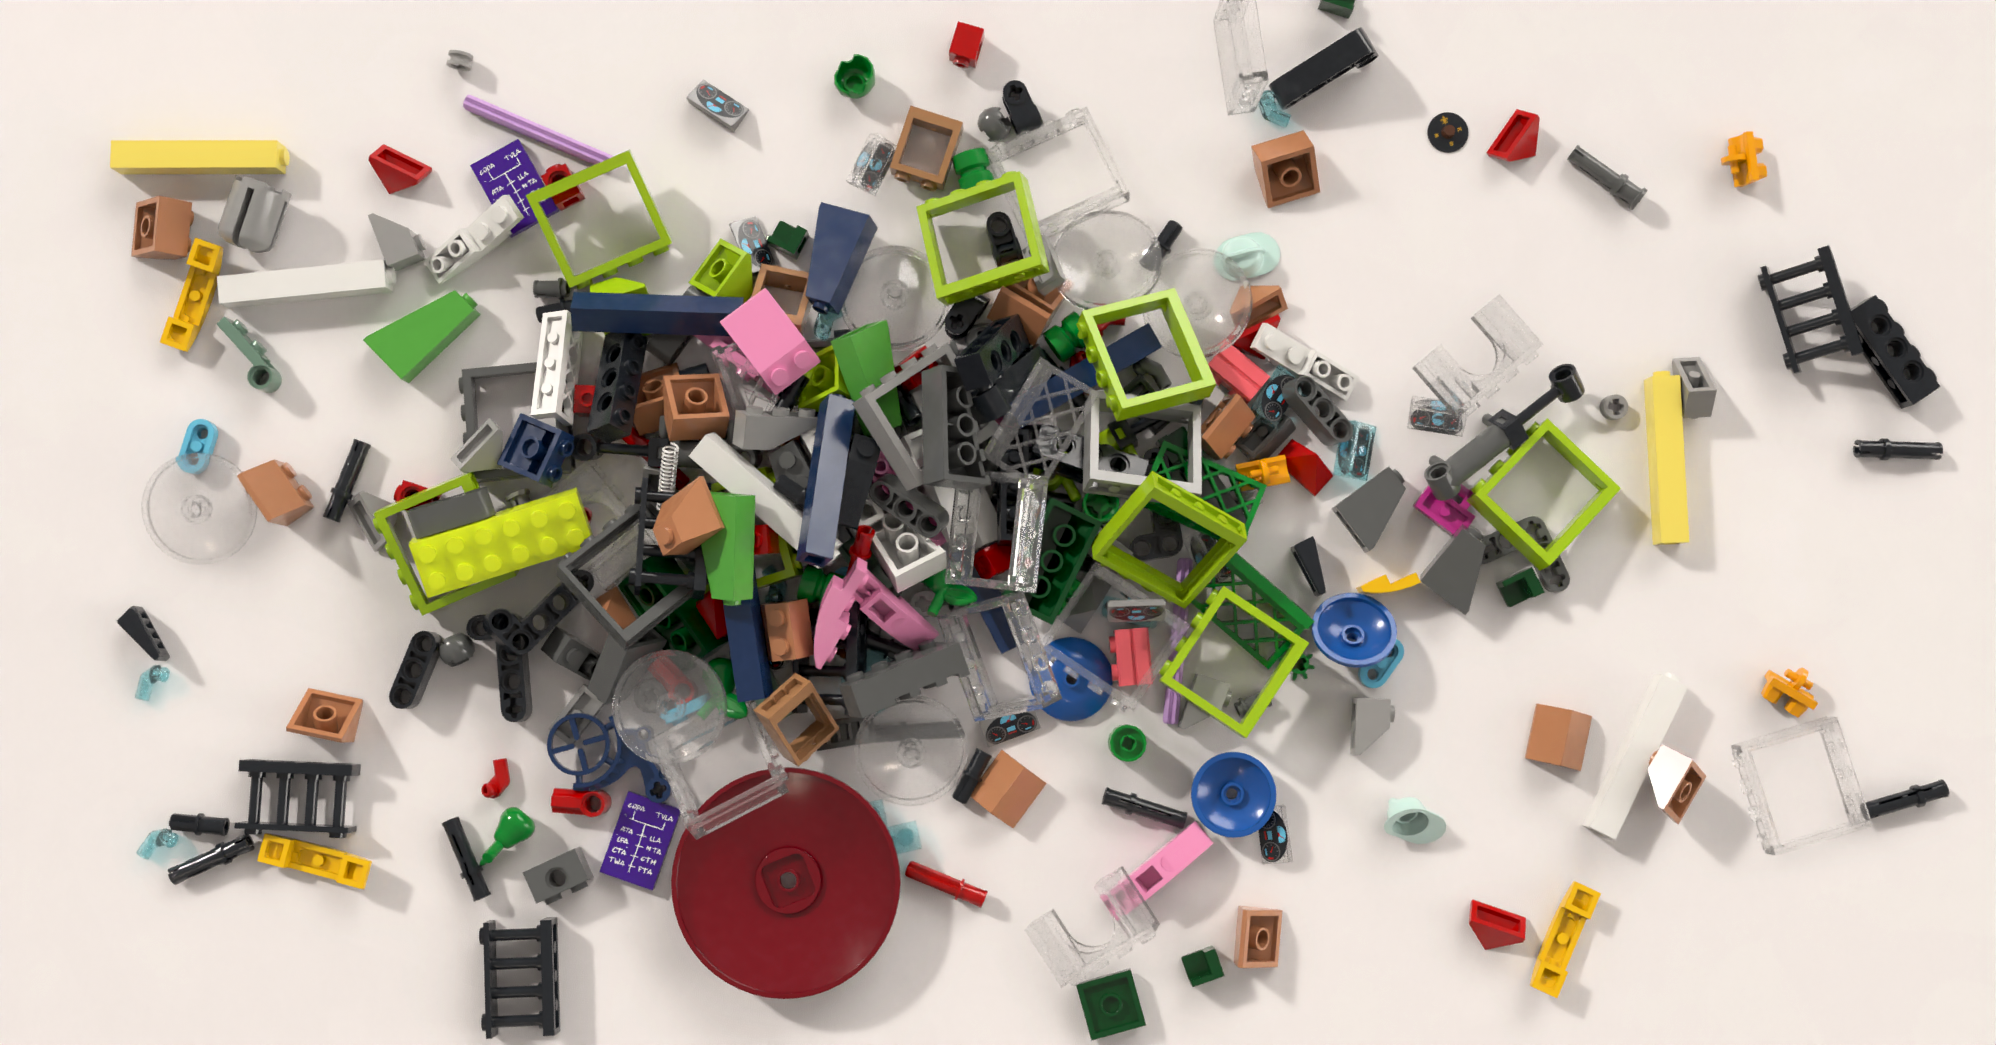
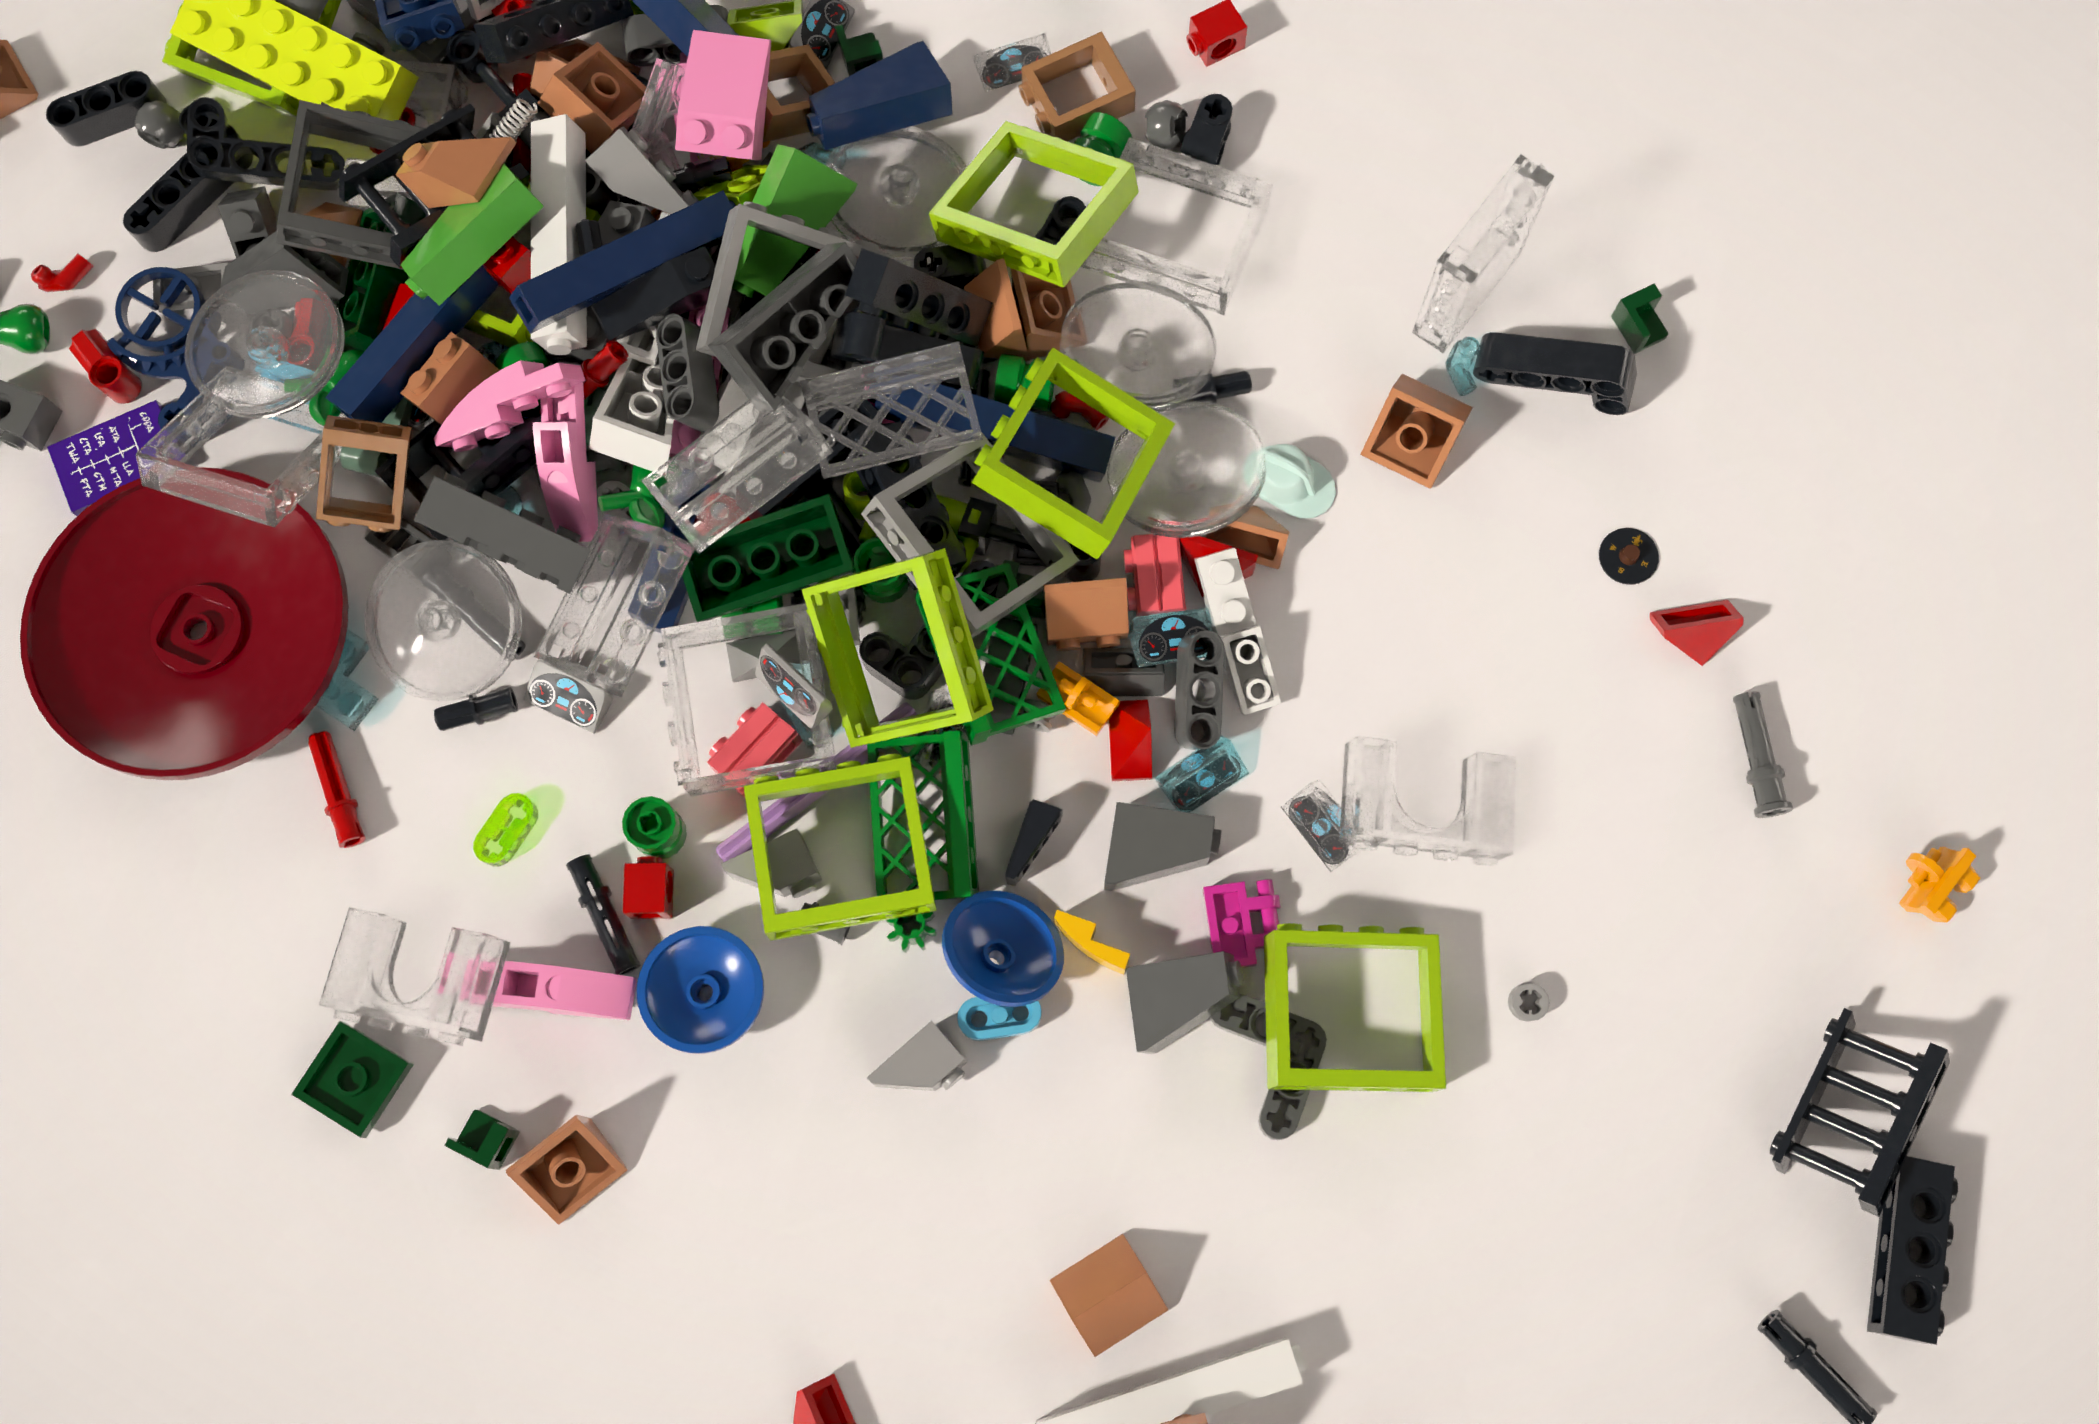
camera: 50 degrees right, 10 degrees down
(884, 645) = (533, 497): black axle -> none
(1007, 789) = (494, 759): nougat slope -> none
(1049, 281) = (1068, 300): light grey plate -> none
(1057, 815) = (498, 824): none -> clear neon green beam
(1077, 699) = (644, 726): blue dish -> none
(1153, 774) = (648, 889): none -> red brick
(1275, 838) = (701, 1083): slope -> none
(1412, 822) = (854, 1216): light aqua piece -> none
(1503, 432) = (1376, 900): piece -> none
(1520, 587) = (1229, 1087): dark green panel -> none
(1666, 459) = (1531, 1113): light yellow brick -> none
(1696, 387) = (1638, 1066): light grey slope -> none

